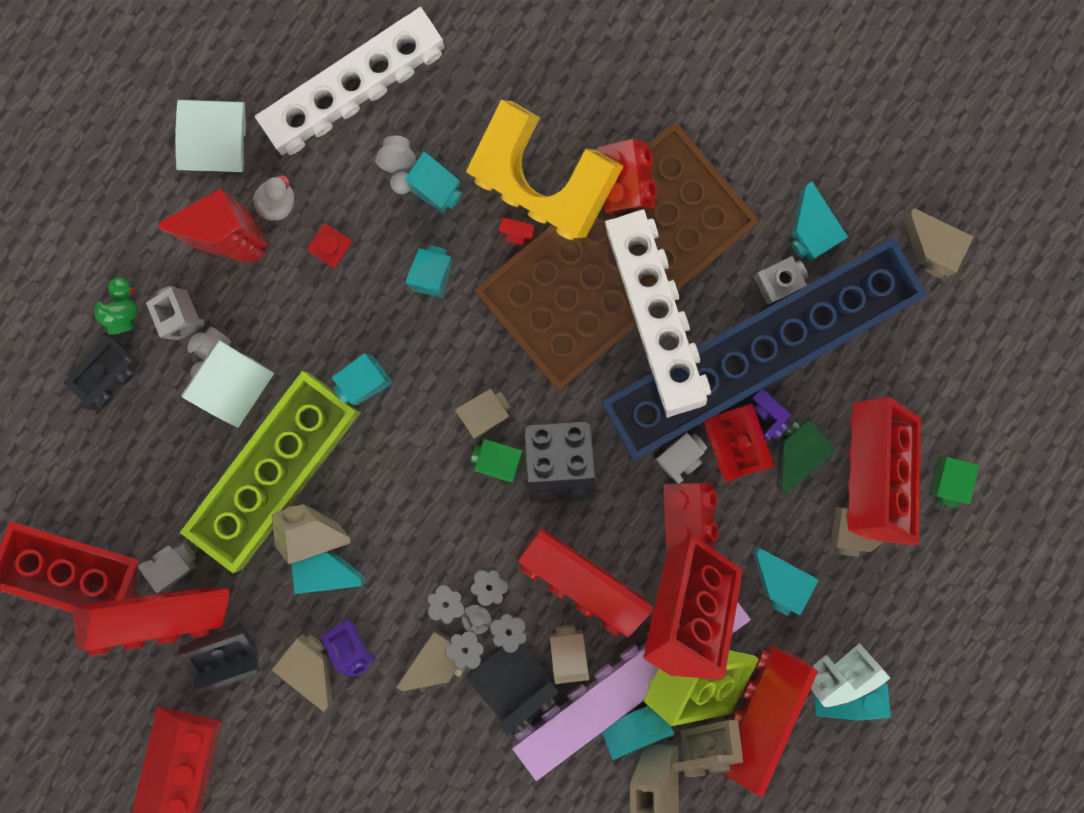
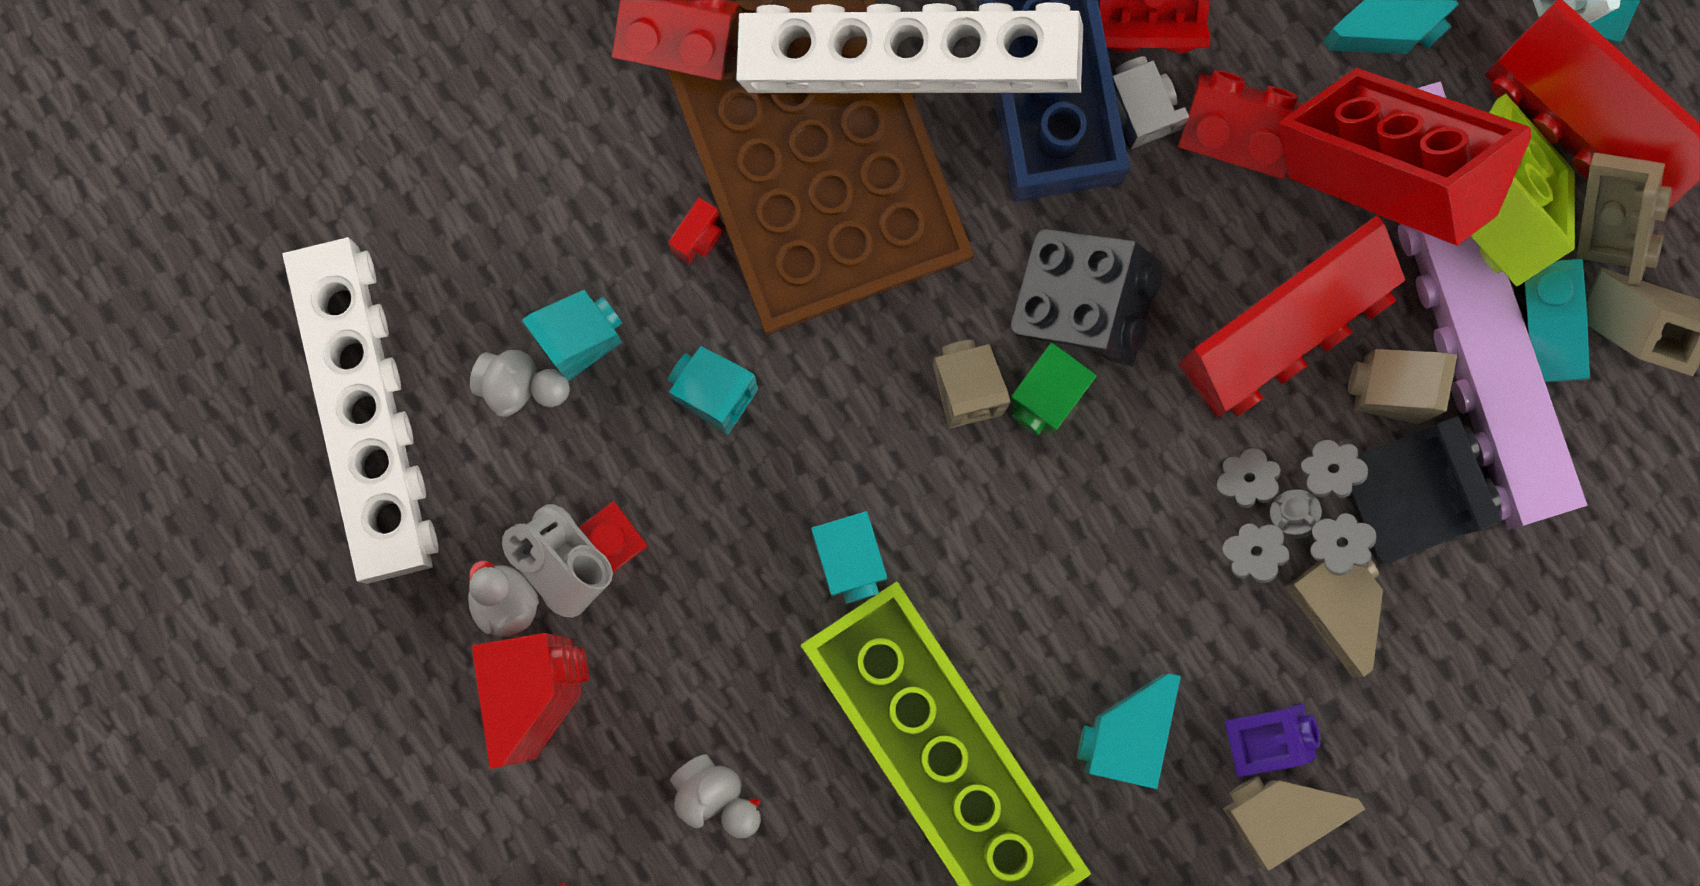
camera: 70 degrees left, 5 degrees down
(174, 313) = (617, 848): light grey brick -> none
(210, 135) = (358, 670): light aqua slope -> none
(227, 384) = (774, 781): light aqua slope -> none
(305, 533) = (1066, 736): dark tan slope -> none
(307, 221) = (561, 563): none -> light grey piece
(499, 166) = (586, 221): yellow arch -> none

